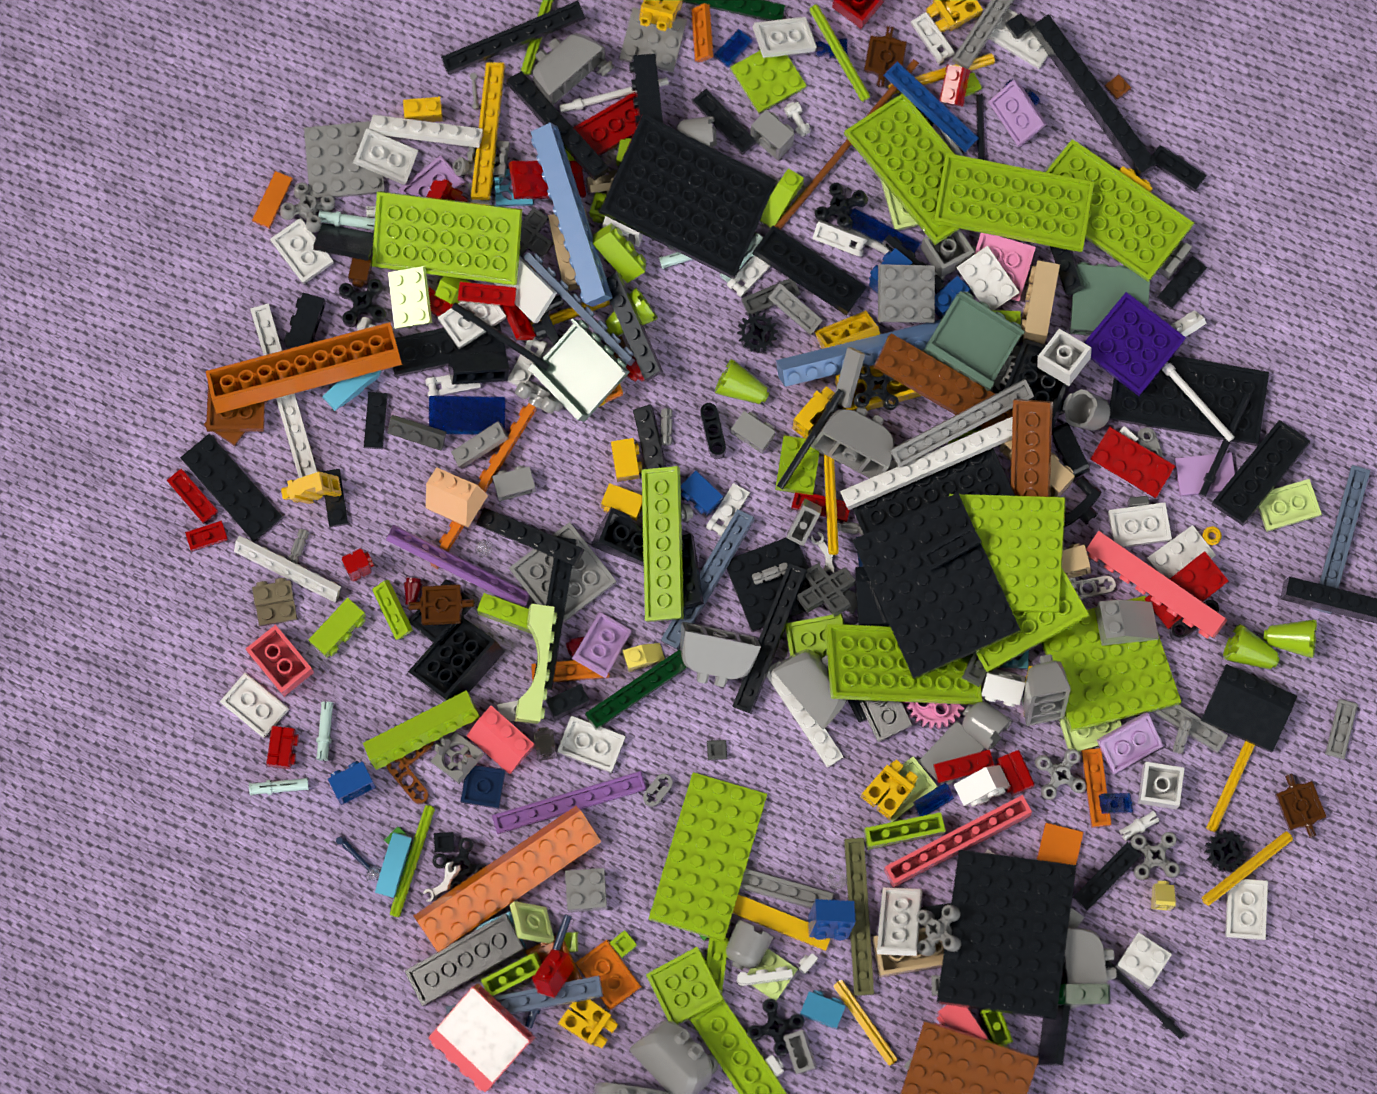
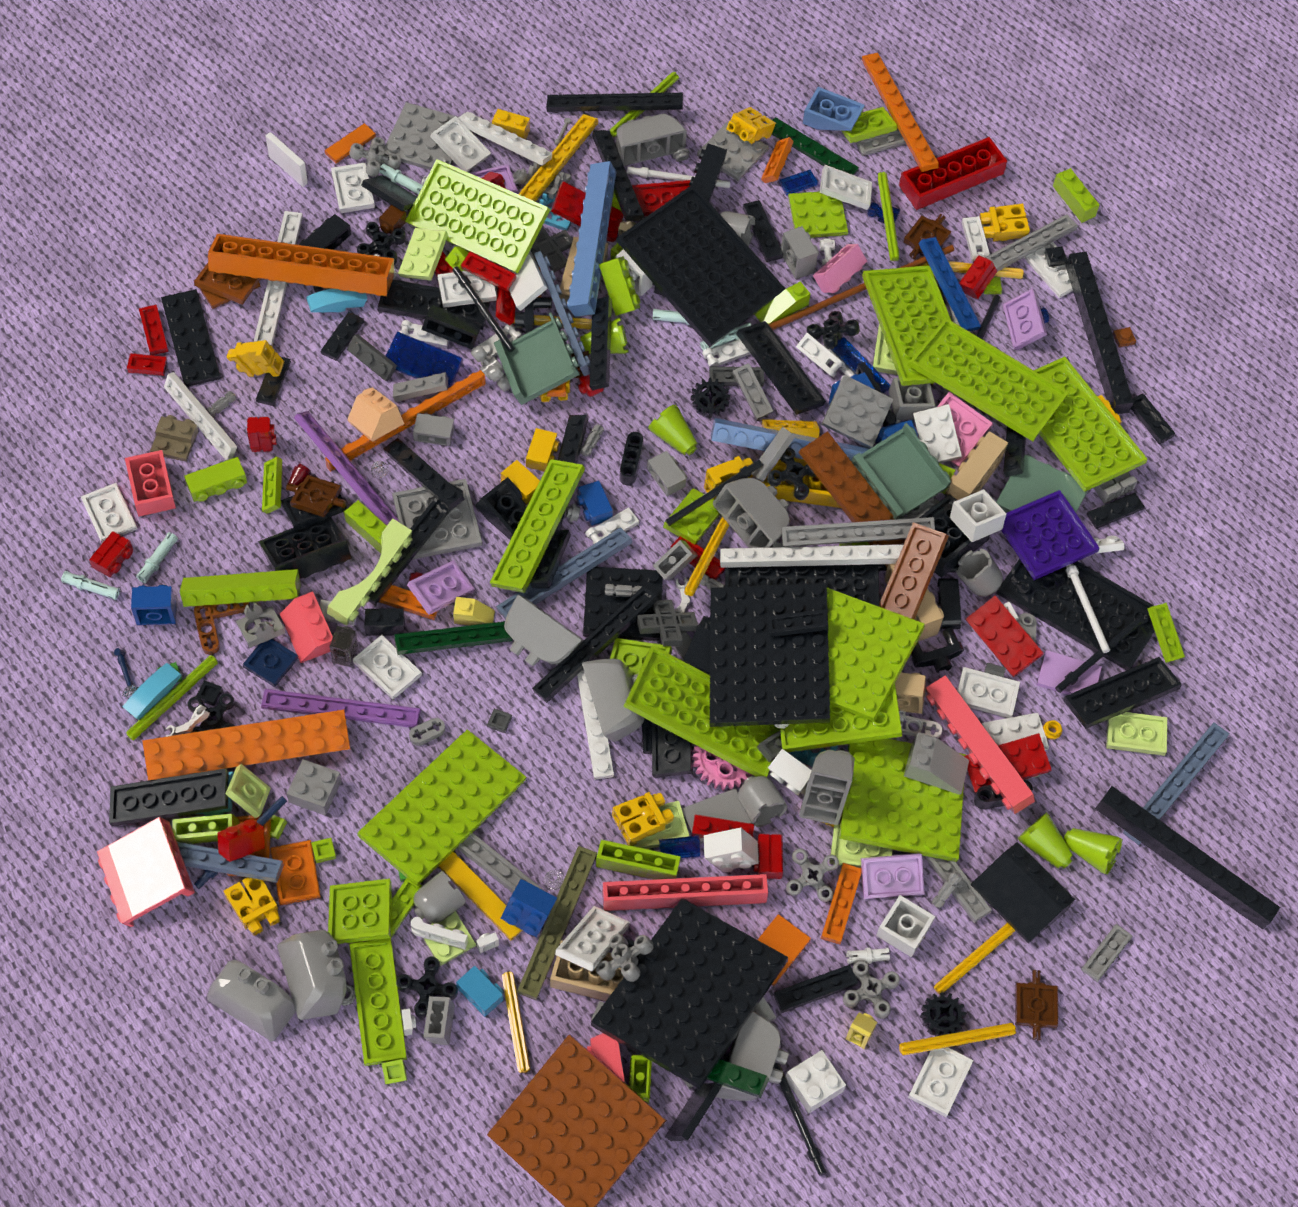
camera: 20 degrees right, 15 degrees down
(224, 251) = (286, 159): none -> white tile
(818, 133) = (840, 268): none -> bright pink brick
(1116, 803) = (854, 923): clear blue plate -> none
(1276, 394) = (1166, 632): none -> lime plate

